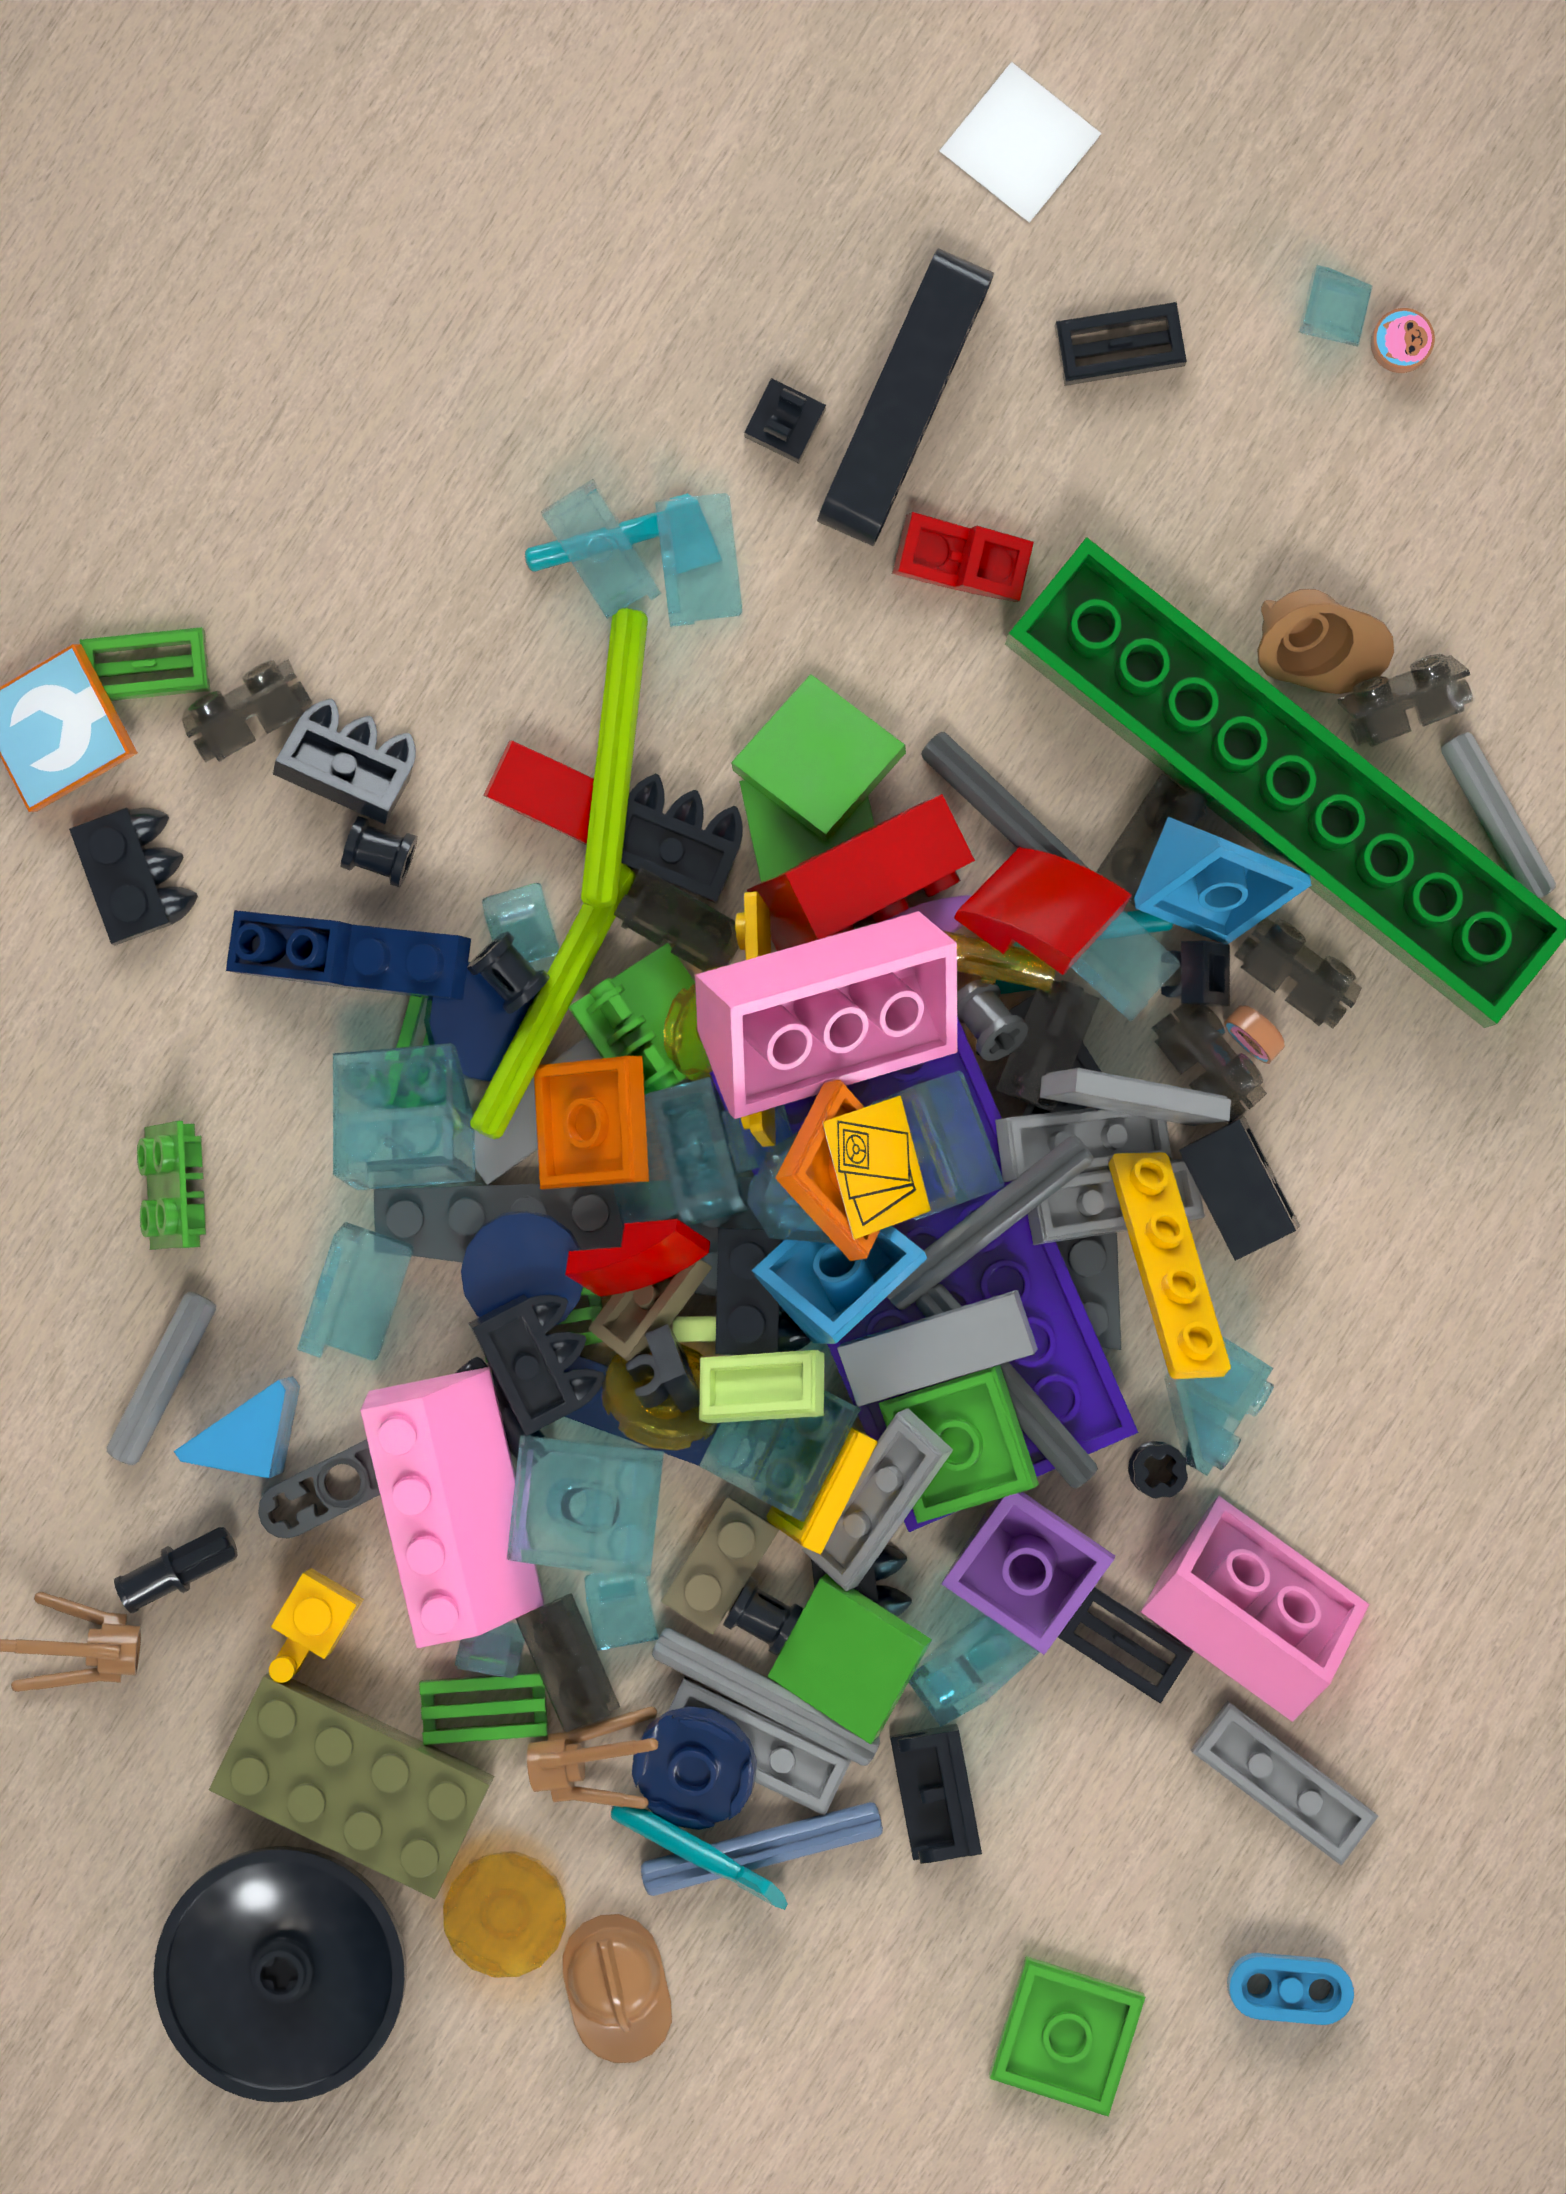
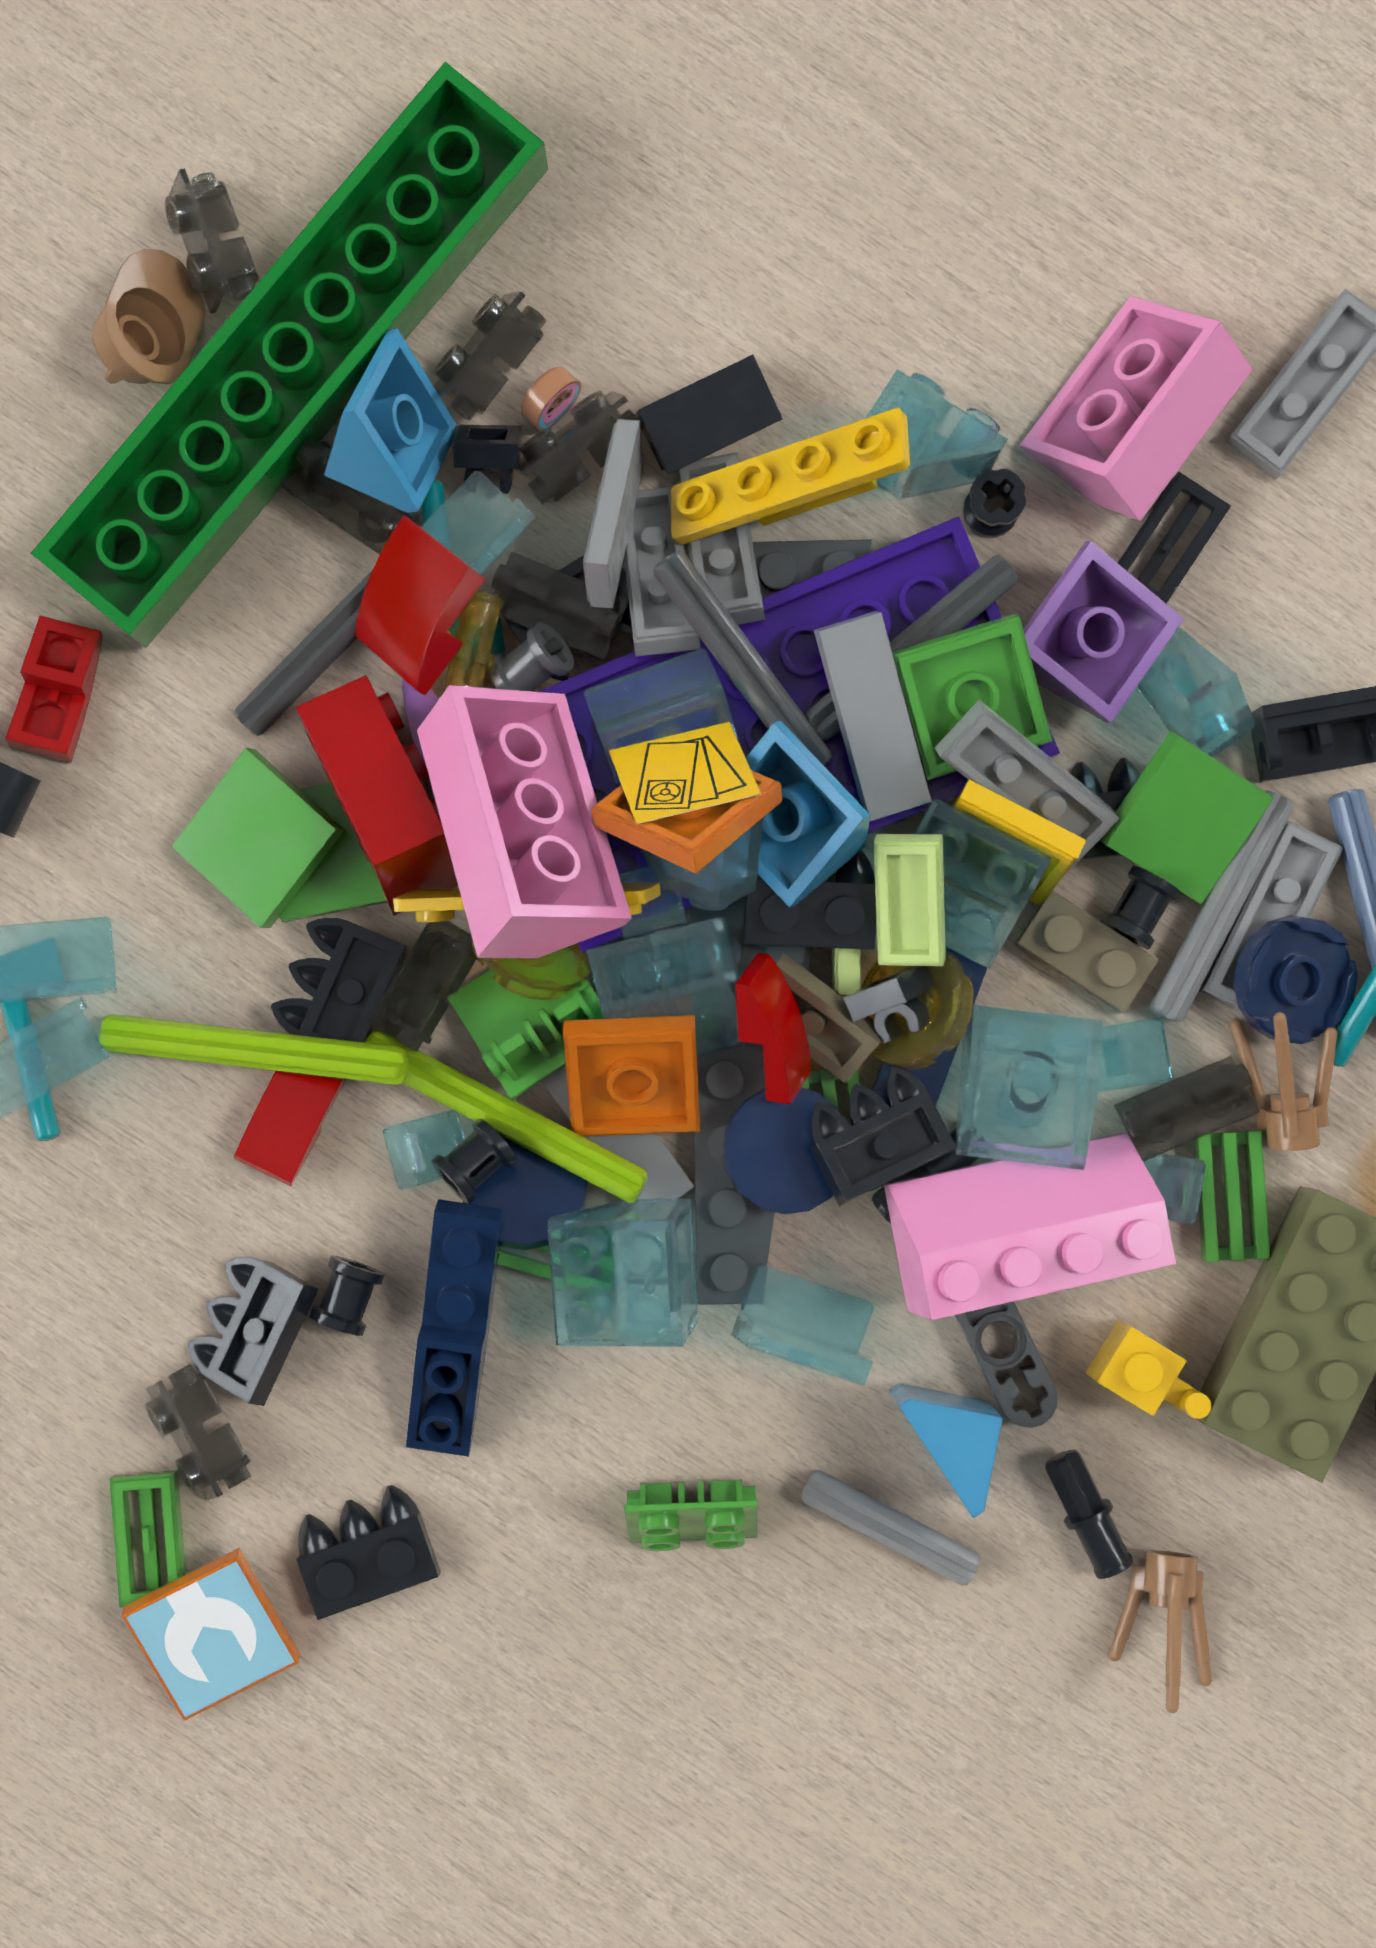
camera: 85 degrees left, 0 degrees up
(1497, 814) = (324, 154): light grey axle -> none

